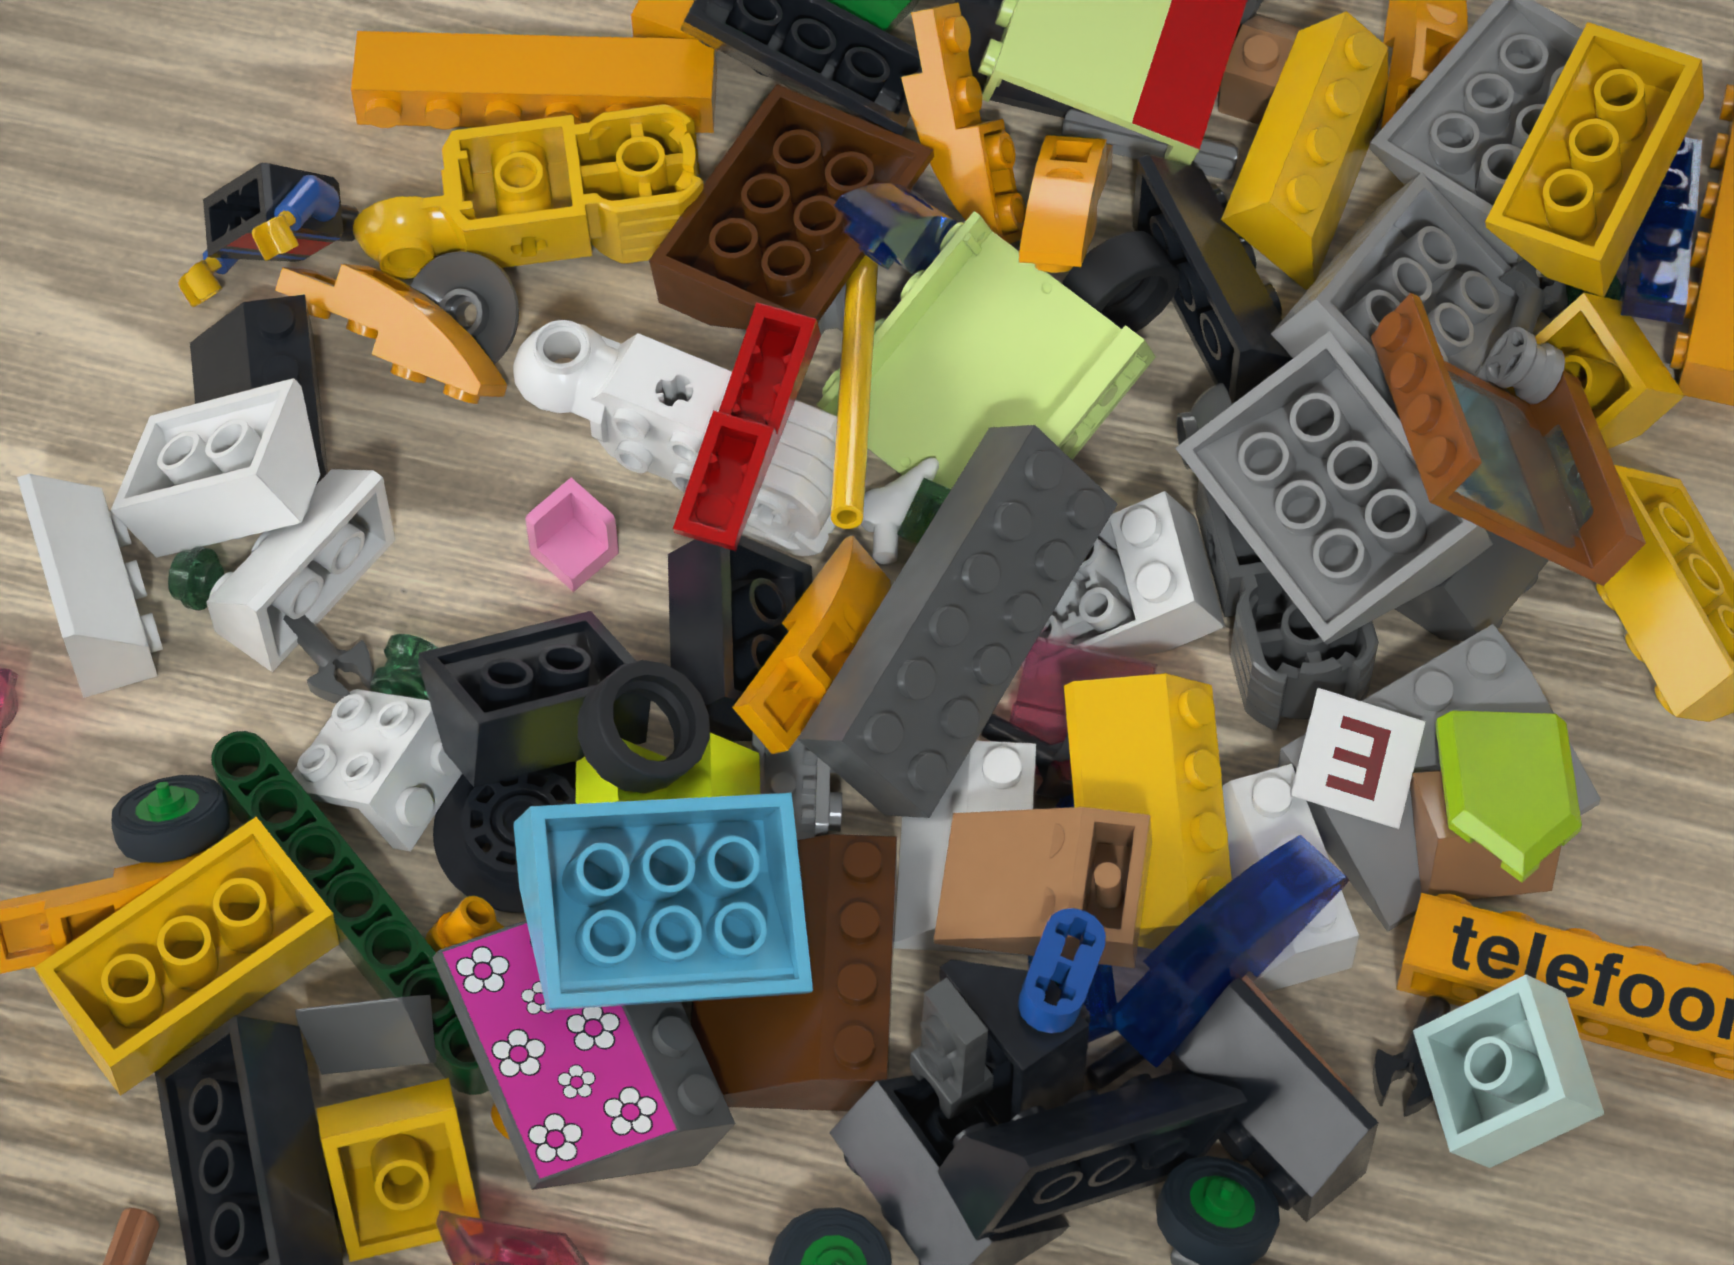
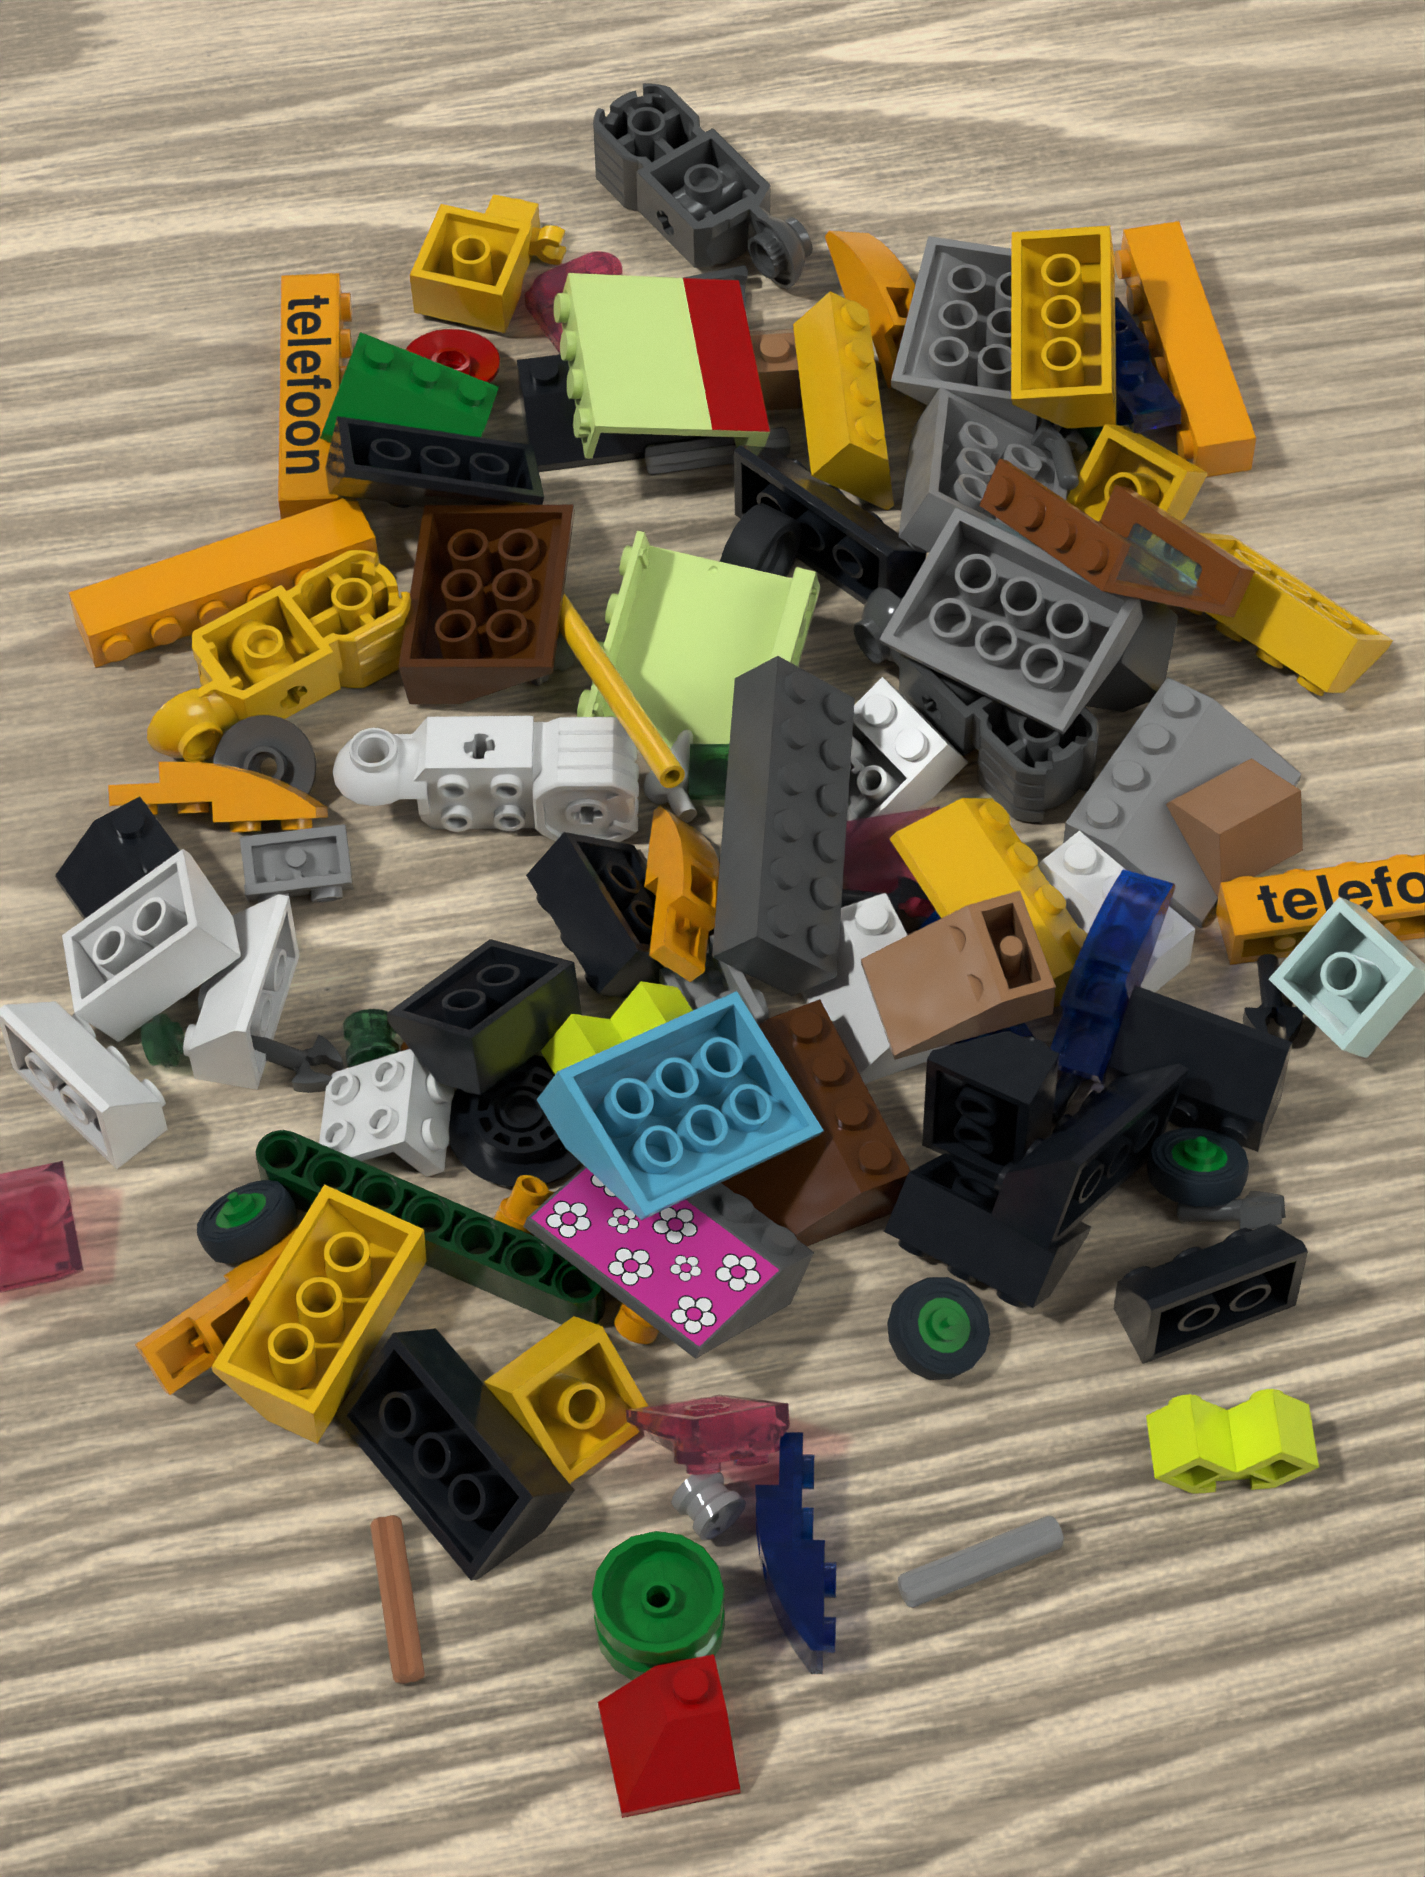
camera: 25 degrees left, 5 degrees down
(267, 217) = (73, 754): torso -> none
(369, 1034) = (496, 1309): dark grey slope -> none
(438, 437) = (297, 864): none -> light grey bracket
(572, 534) = (442, 891): bright pink panel -> none
(676, 699) = (574, 1017): black tyre -> none
(748, 426) = (553, 747): red slope -> none
(894, 225) = (586, 568): clear blue slope -> none
(945, 103) = (561, 469): light orange slope -> none
(952, 1050) = (959, 1119): dark grey plate -> none
(1064, 202) = (691, 505): light orange slope -> none
(1074, 974) = (1031, 1021): blue beam -> none
(1358, 758) = (1127, 805): white sticker -> none
(1509, 784) = (1245, 777): lime tile -> none
(1525, 365) = (1089, 491): light grey wheel -> none

